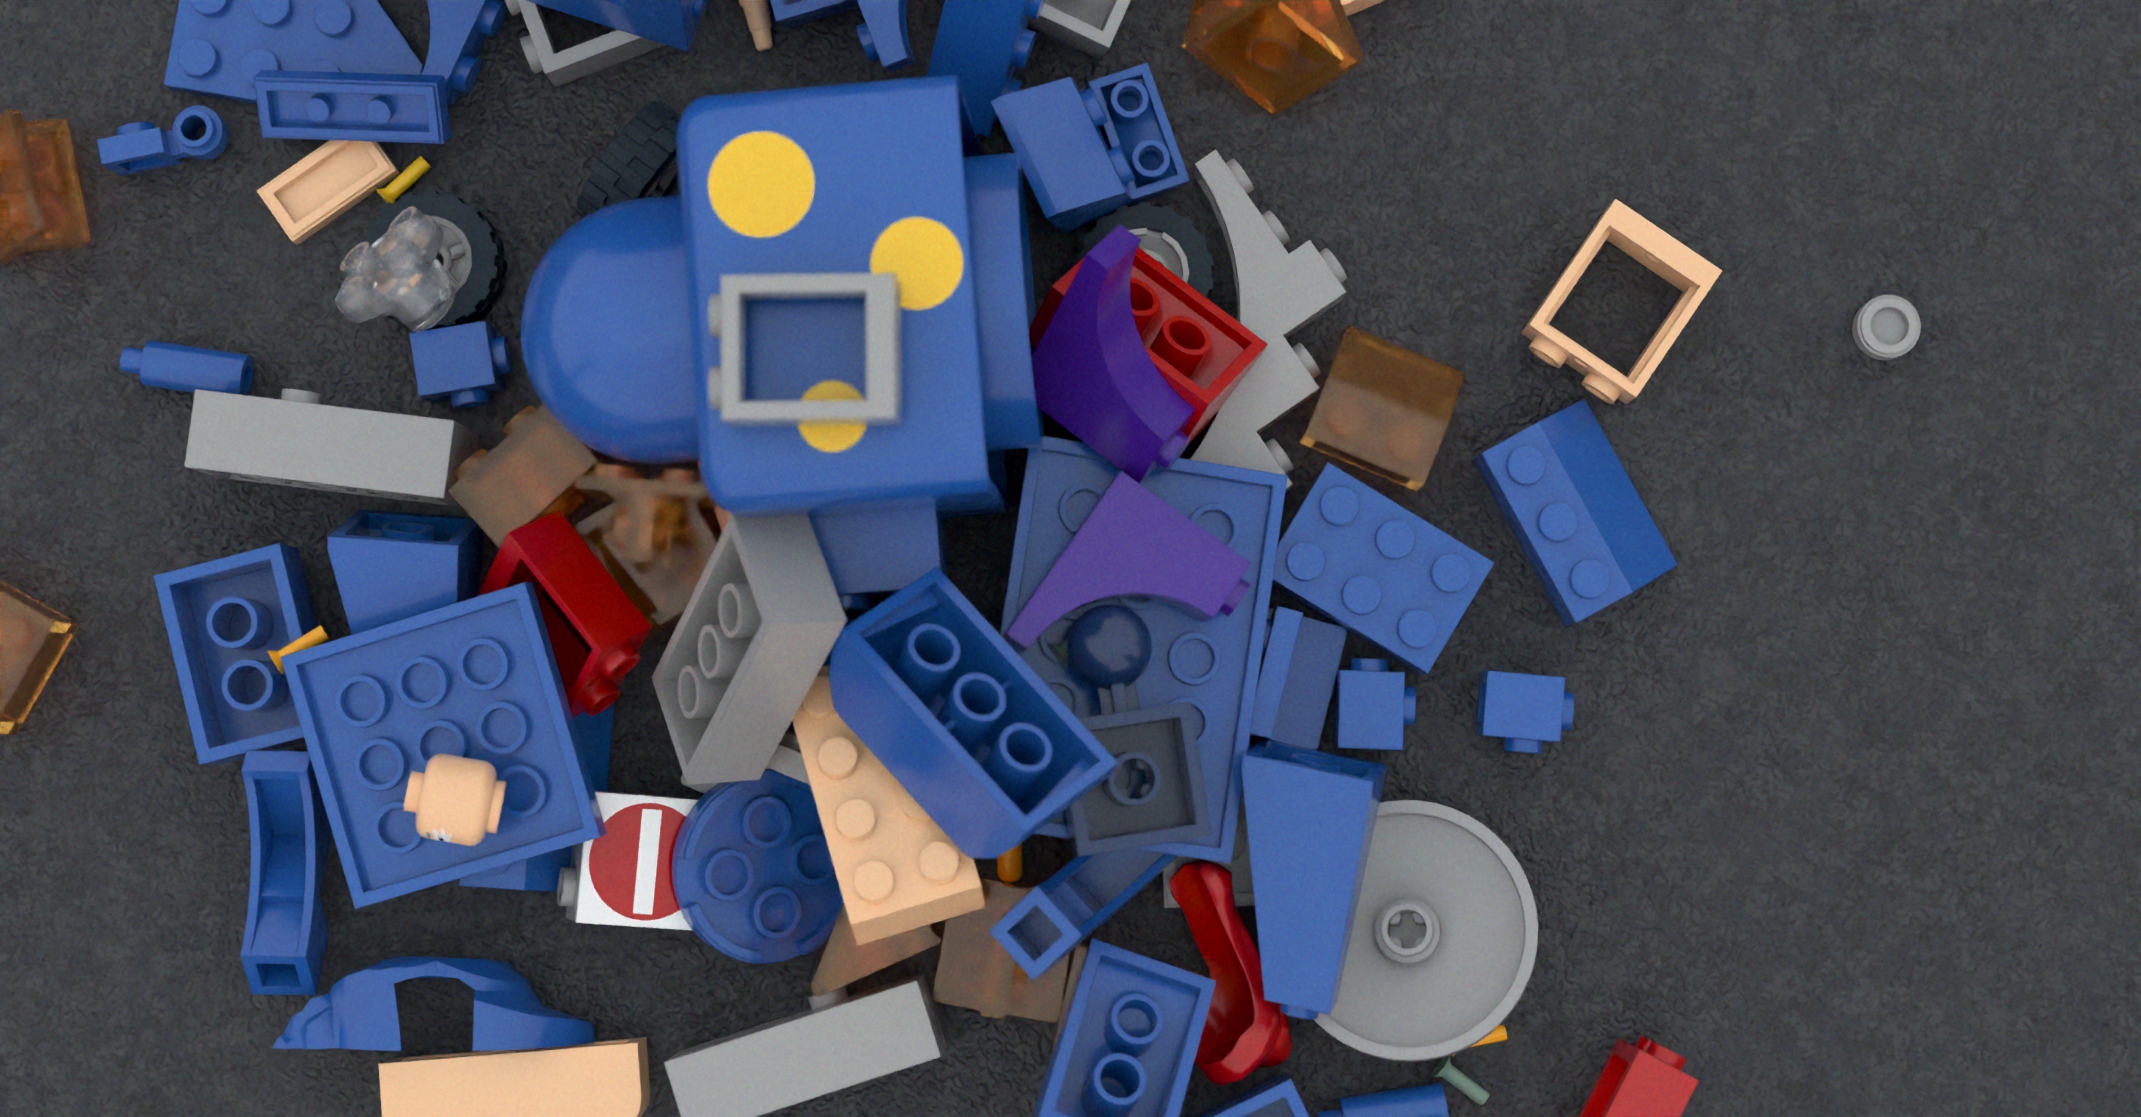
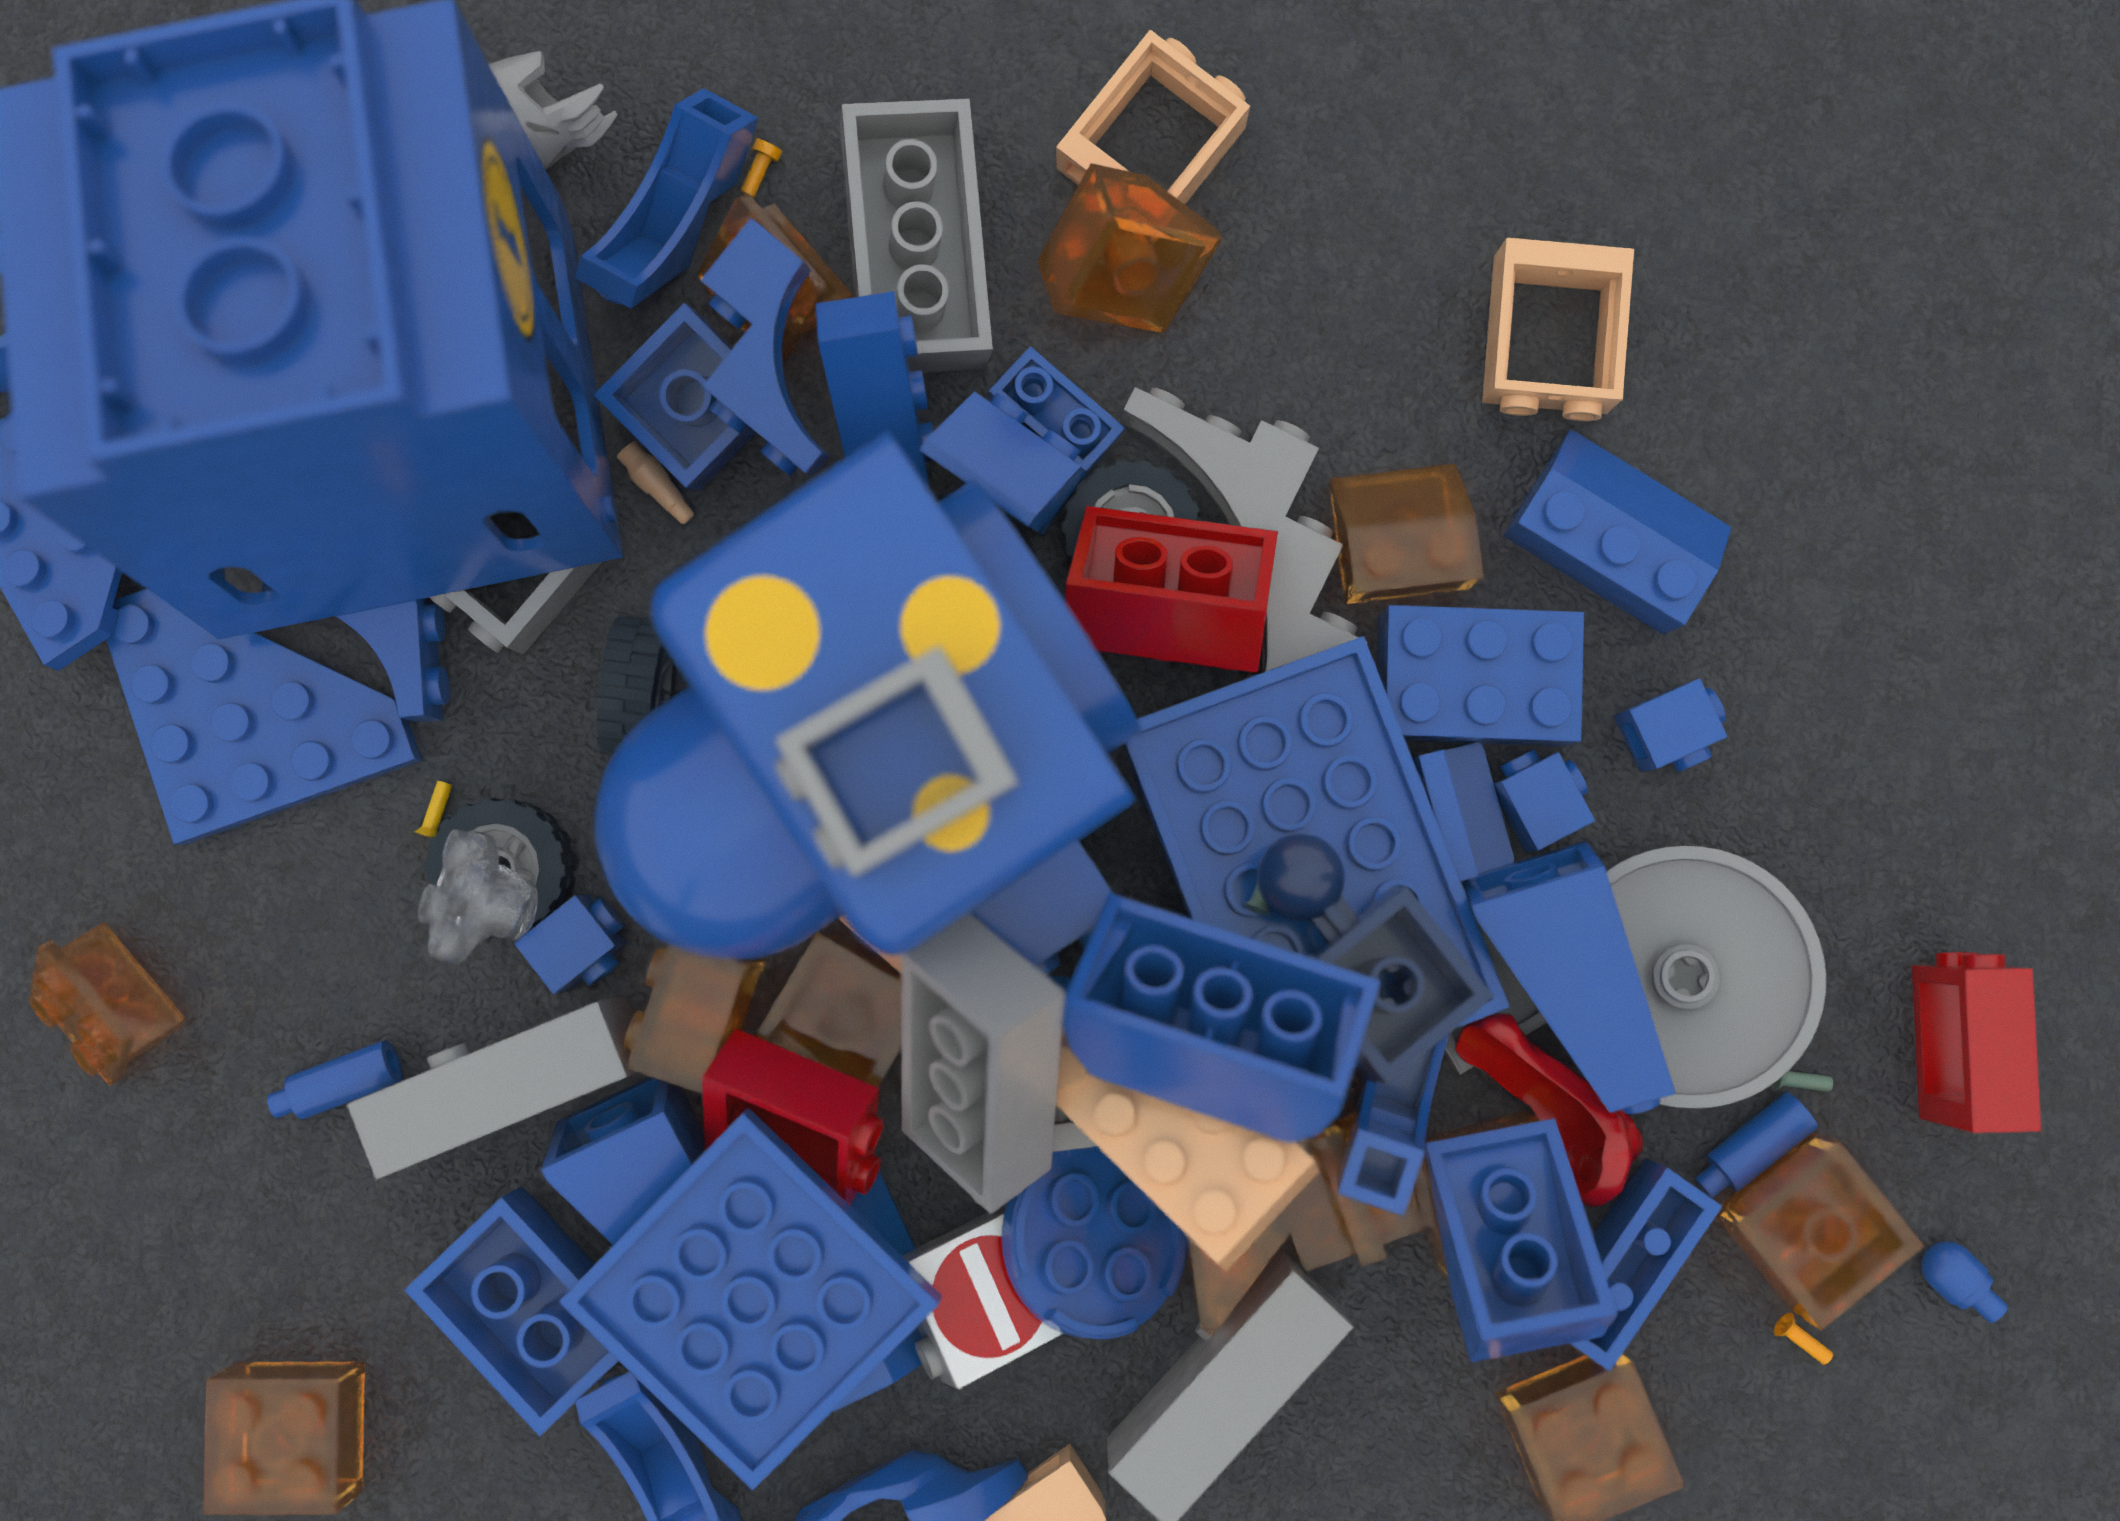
camera: 30 degrees left, 0 degrees up
(145, 148) = (190, 907): blue plate -> none
(310, 639) = (574, 1274): light orange piece -> none
(326, 185) = (368, 848): light nougat tile -> none
(352, 106) = (351, 770): blue tile -> none
(455, 799) = (790, 1347): light nougat head -> none
(646, 522) = (822, 999): clear orange bracket -> none
(1098, 374) = (1157, 638): dark purple arch -> none
(1134, 550) = (1266, 778): dark purple arch -> none
(1886, 327) = (1792, 224): light grey tile -> none

